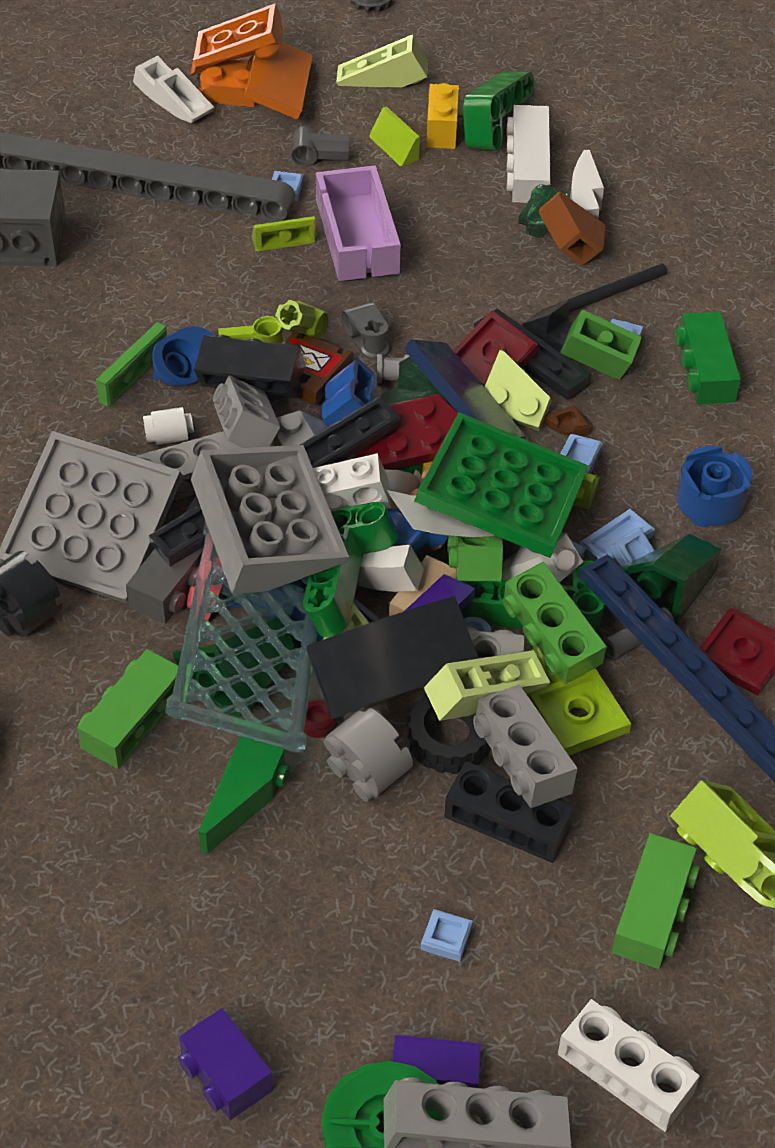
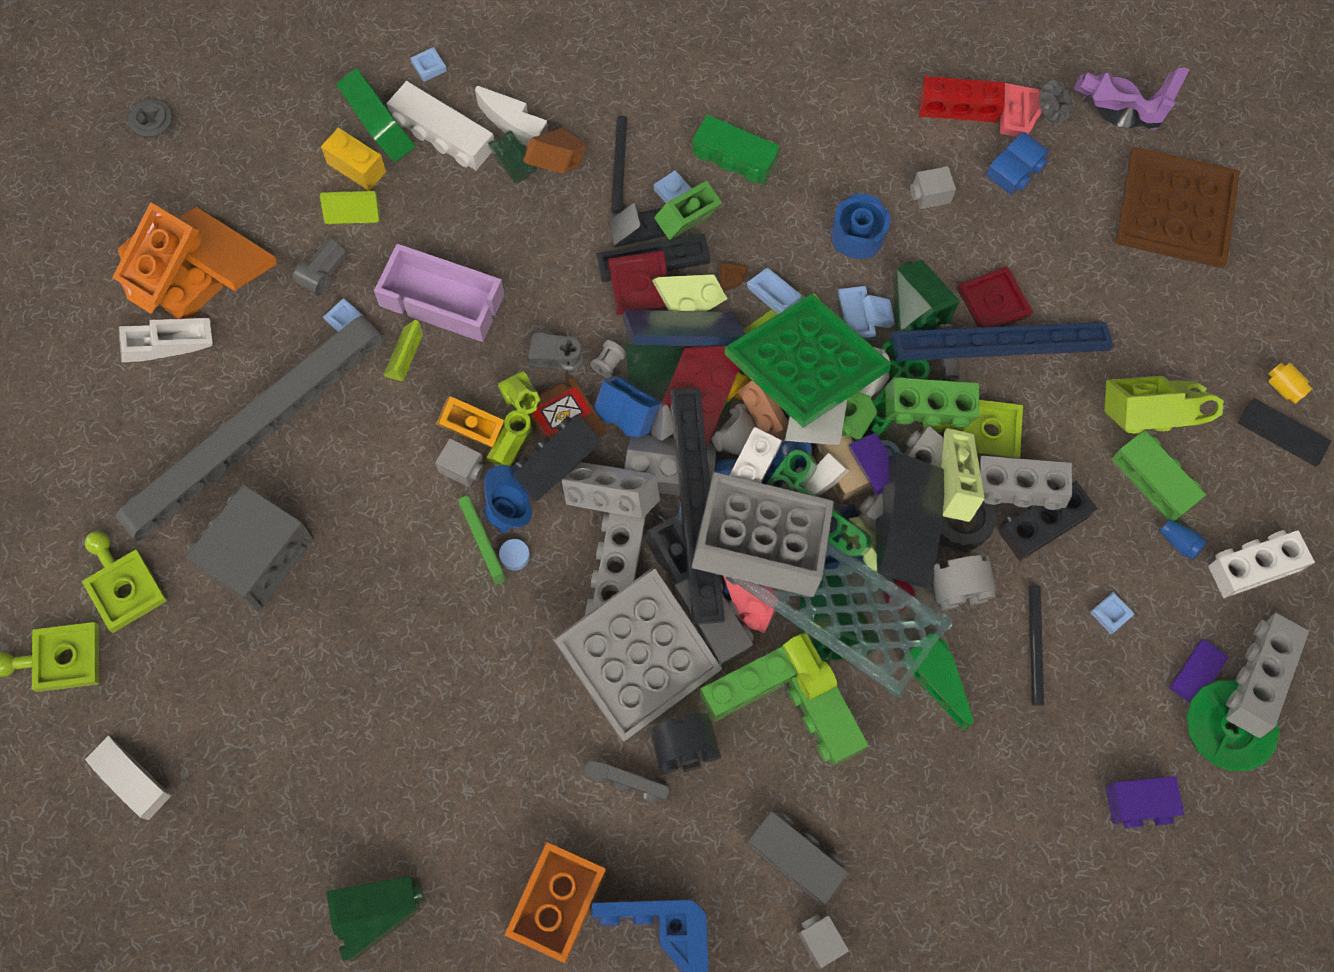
camera: 60 degrees left, 20 degrees up
(118, 621) = (747, 684): none -> bright green brick
(138, 398) = (514, 554): none -> light blue tile
(160, 654) = (812, 674): none -> lime piece
(168, 426) = (565, 549): white brick -> none
(200, 310) = (460, 463): none -> light grey brick
(242, 293) = (469, 421): none -> light orange slope
(350, 874) = (1036, 646): none -> black bar
(388, 66) = (258, 164): yellowish green slope -> none
(588, 123) = (428, 64): none -> light blue tile
(595, 967) = (1183, 539): none -> blue cone

